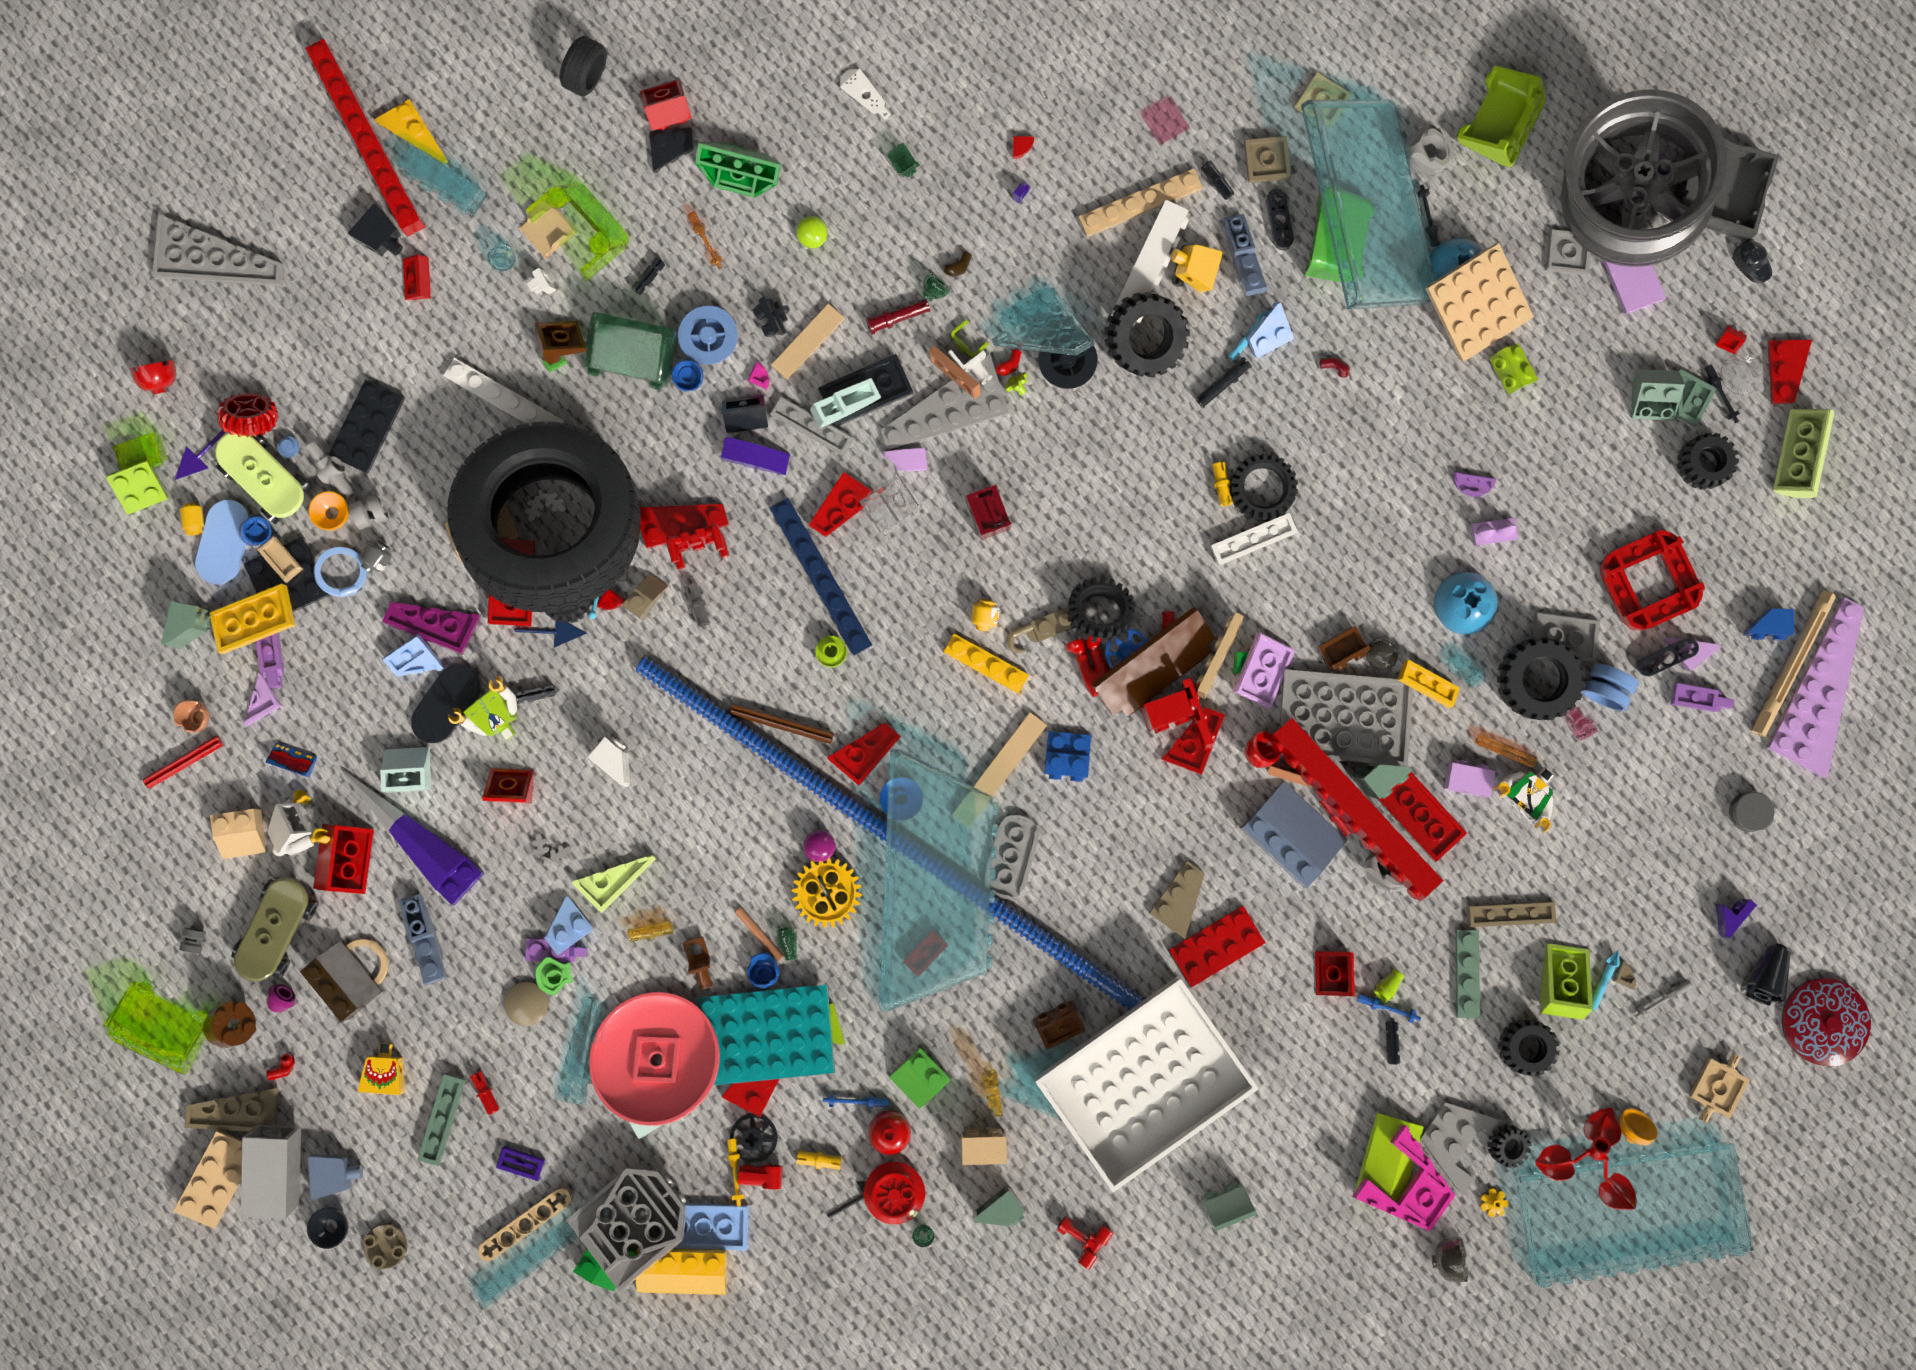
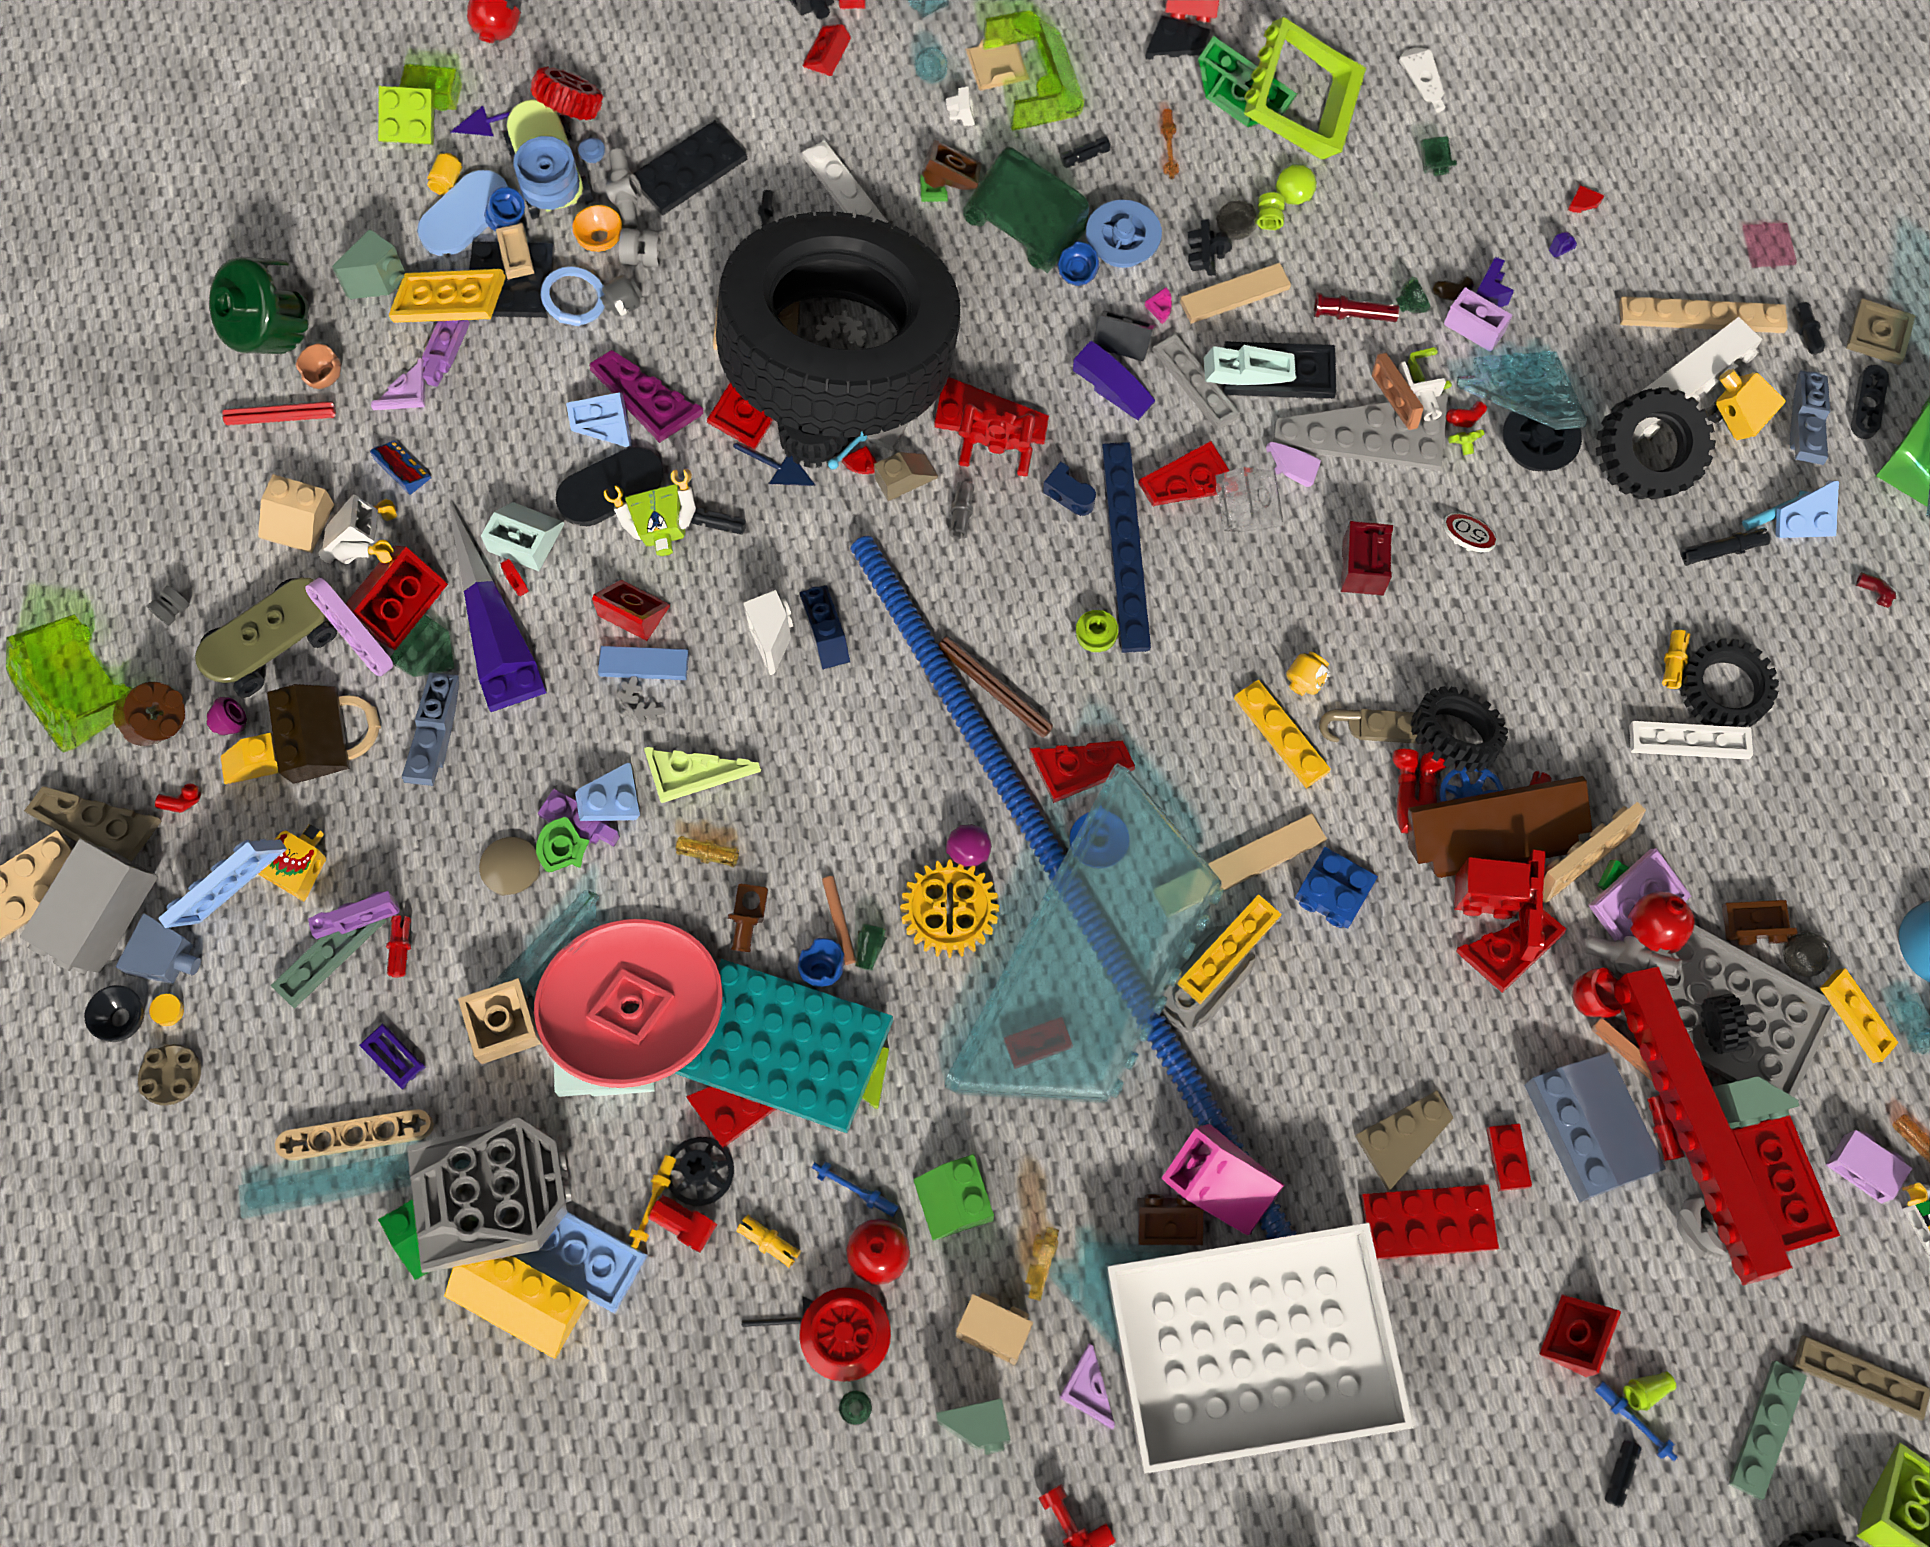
camera: 30 degrees right, 15 degrees down
(121, 703) = (252, 312): none -> dark green piece
(273, 495) = (546, 172): none -> medium blue wheel
(313, 1019) = (249, 759): none -> yellow slope
(328, 899) = (349, 626): none -> lavender beam
(349, 1114) = (223, 882): none -> light blue plate
(358, 1206) = (166, 1009): none -> yellow tile
(385, 884) = (424, 650): none -> clear green slope
(415, 803) = (514, 577): none -> red tile
(441, 436) = (766, 210): none -> black piece
(445, 1091) = (354, 915): none -> medium lavender hinge
(538, 821) = (643, 663): none -> medium blue tile
(577, 1111) = (499, 1021): none -> tan slope
(646, 736) = (825, 627): none -> dark blue slope
(761, 556) = (1069, 492): none -> dark blue leg
(782, 283) = (1237, 220): none -> clear smoke hair
(803, 264) = (1270, 208): none -> lime wheel
(813, 148) = (1340, 101): none -> lime windscreen
(985, 259) = (1491, 286): none -> dark purple slope
(986, 286) = (1477, 319): none -> lavender brick
(1018, 833) = (1229, 949): none -> yellow plate
(1048, 456) = (1469, 532): none -> piece
(1055, 1151) = (1087, 1390): none -> lavender tile
(1079, 987) = (1222, 1179): none -> dark pink slope
(1249, 880) = (1509, 1157): none -> red plate
(1273, 714) = (1632, 955): none -> light grey pin
(1282, 684) = (1662, 921): none -> red cylinder
(1347, 735) = (1725, 1023): none -> black tyre

